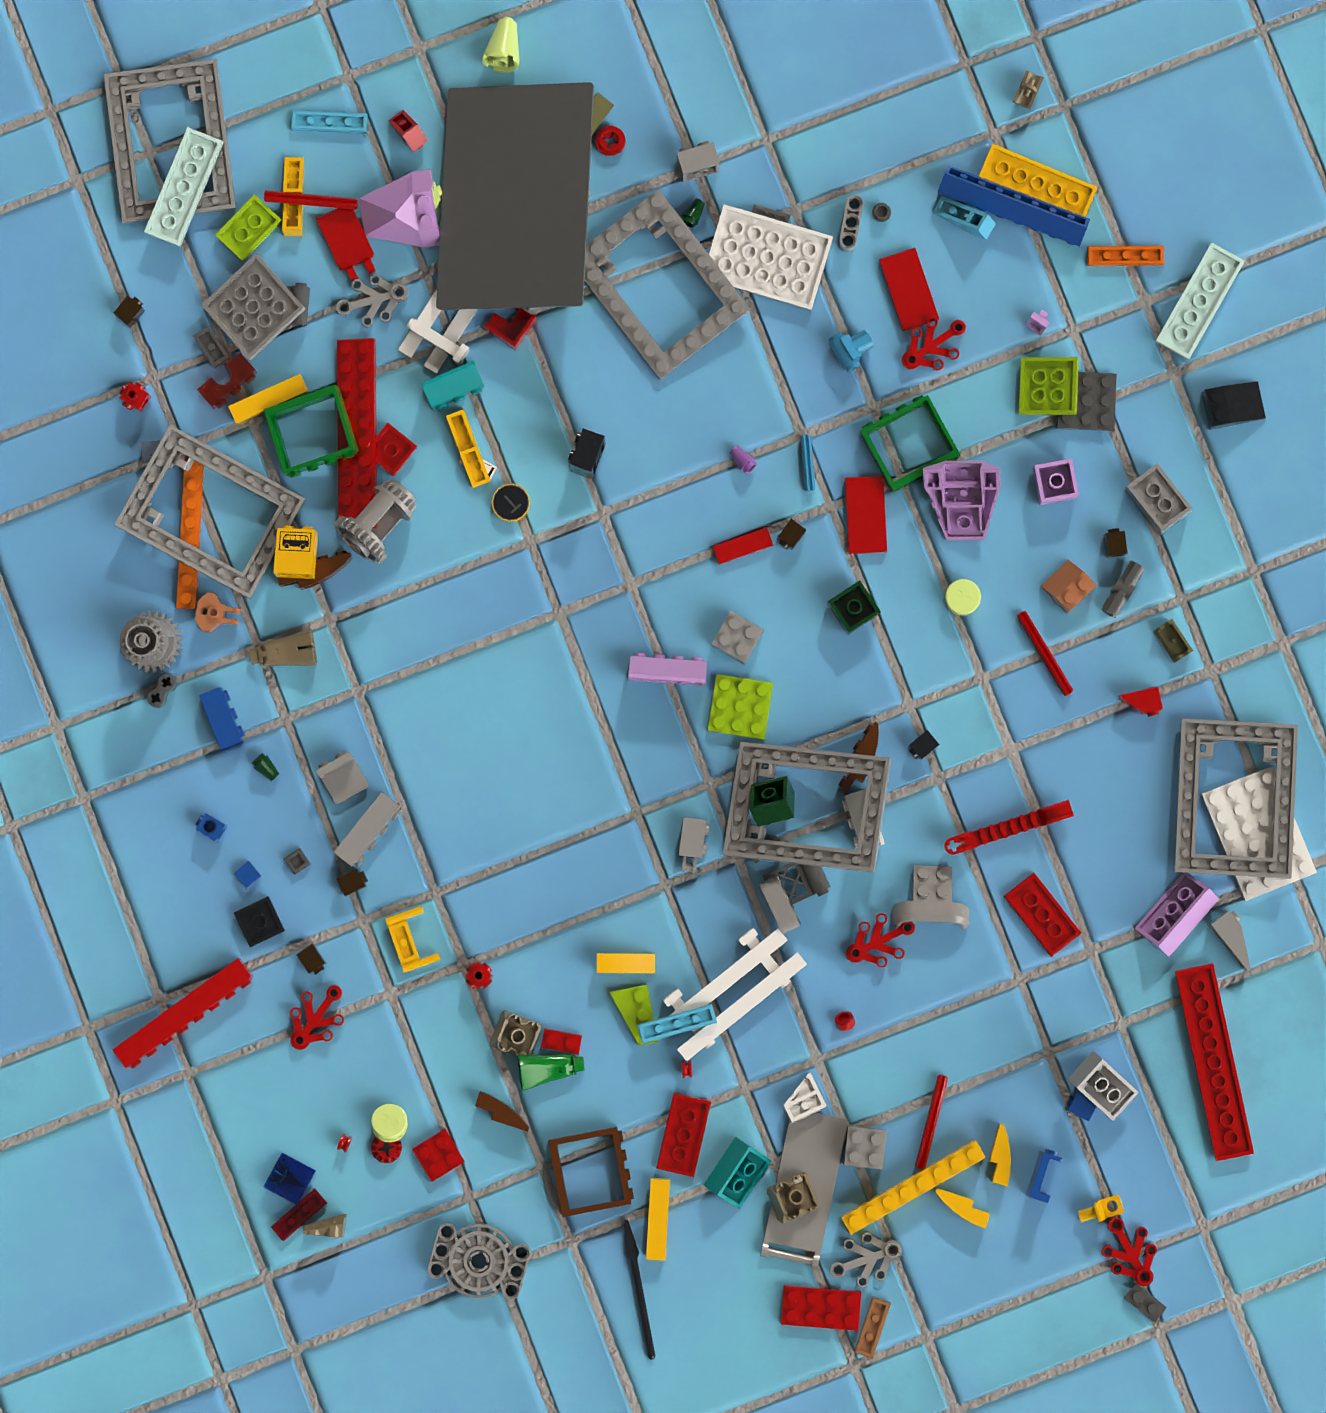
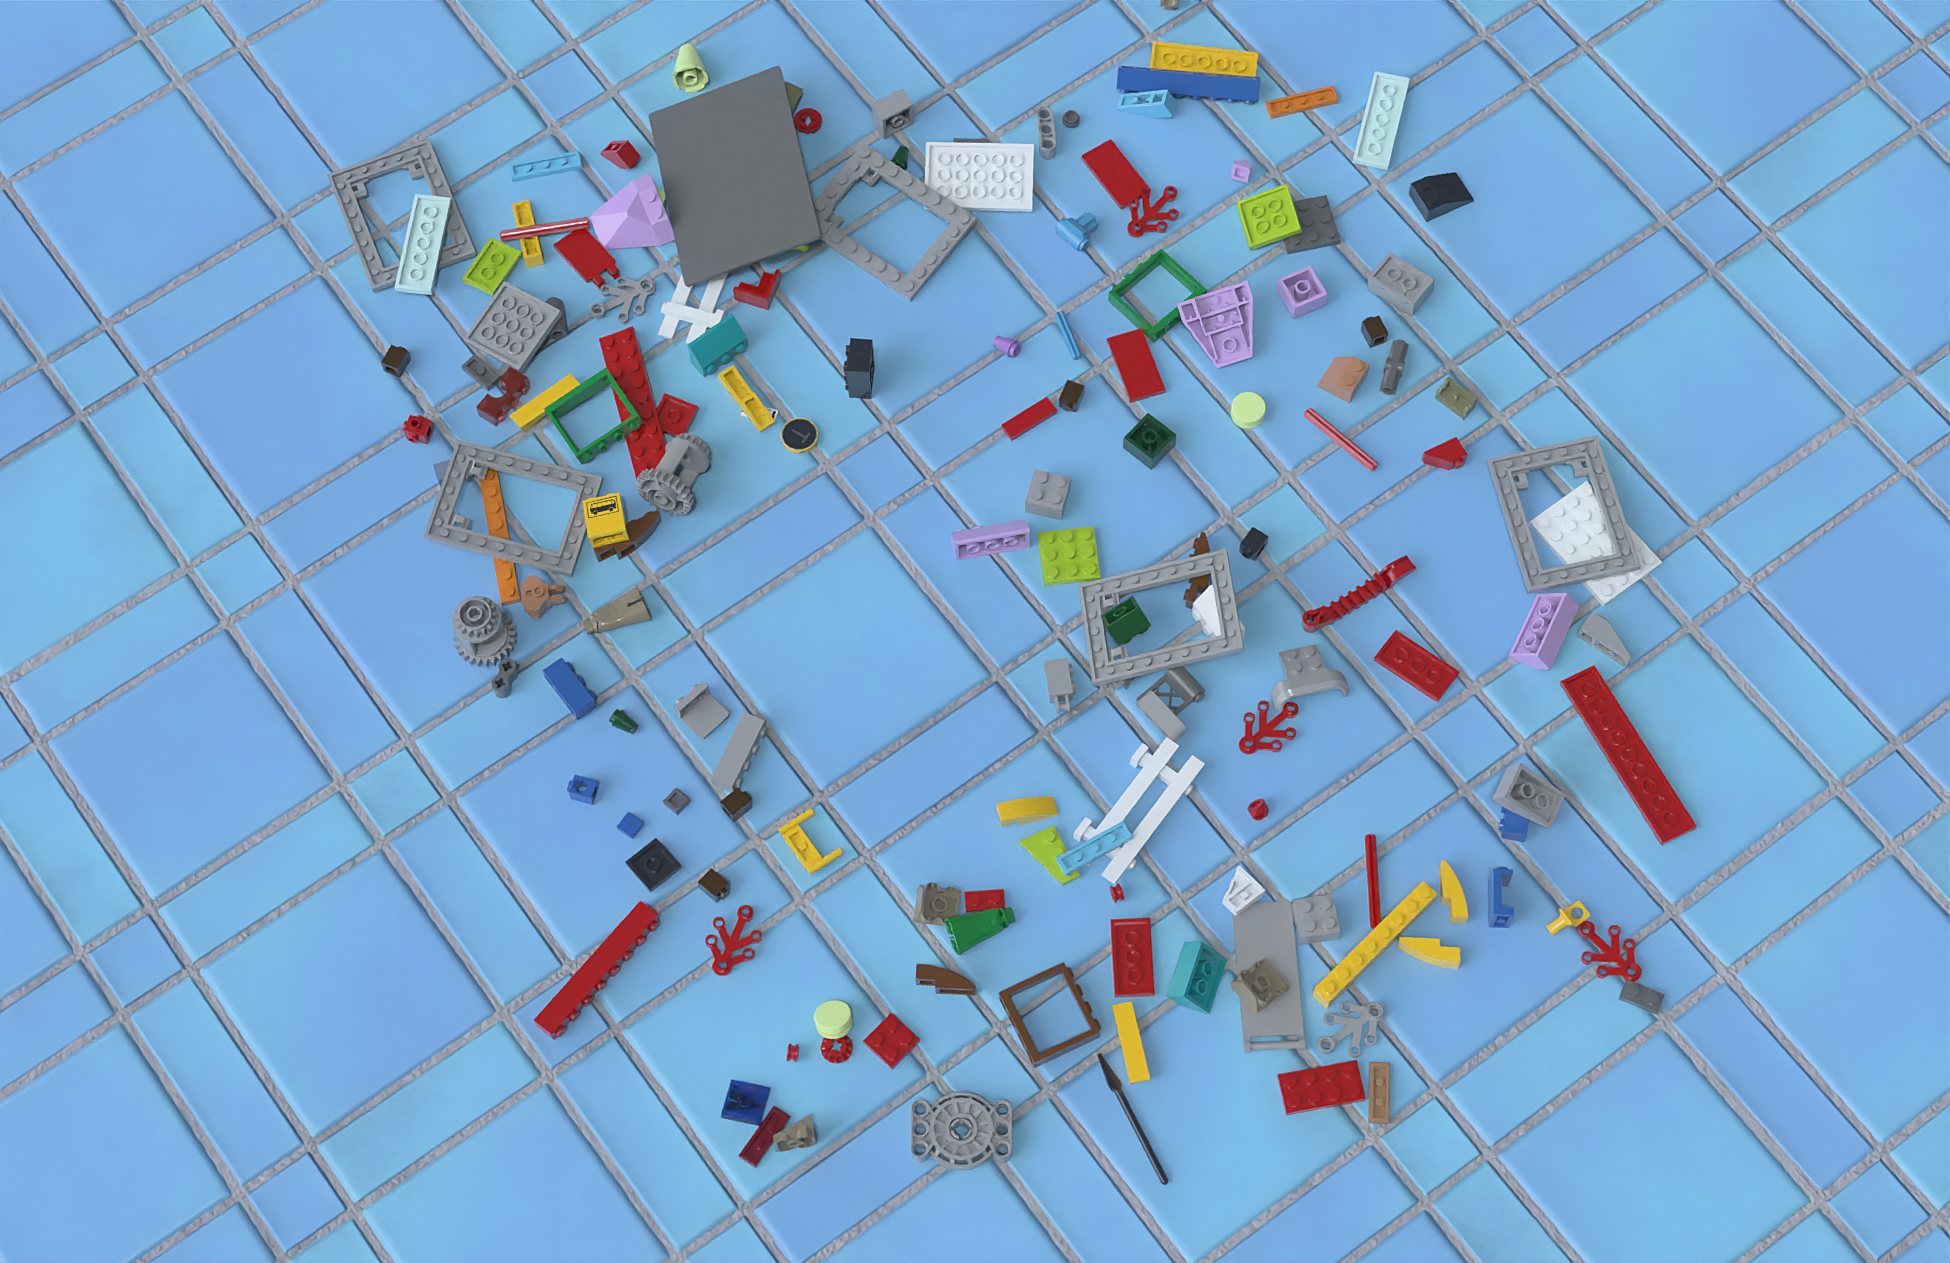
camera: 15 degrees left, 20 degrees down
(485, 981) = (887, 862): red brick -> none

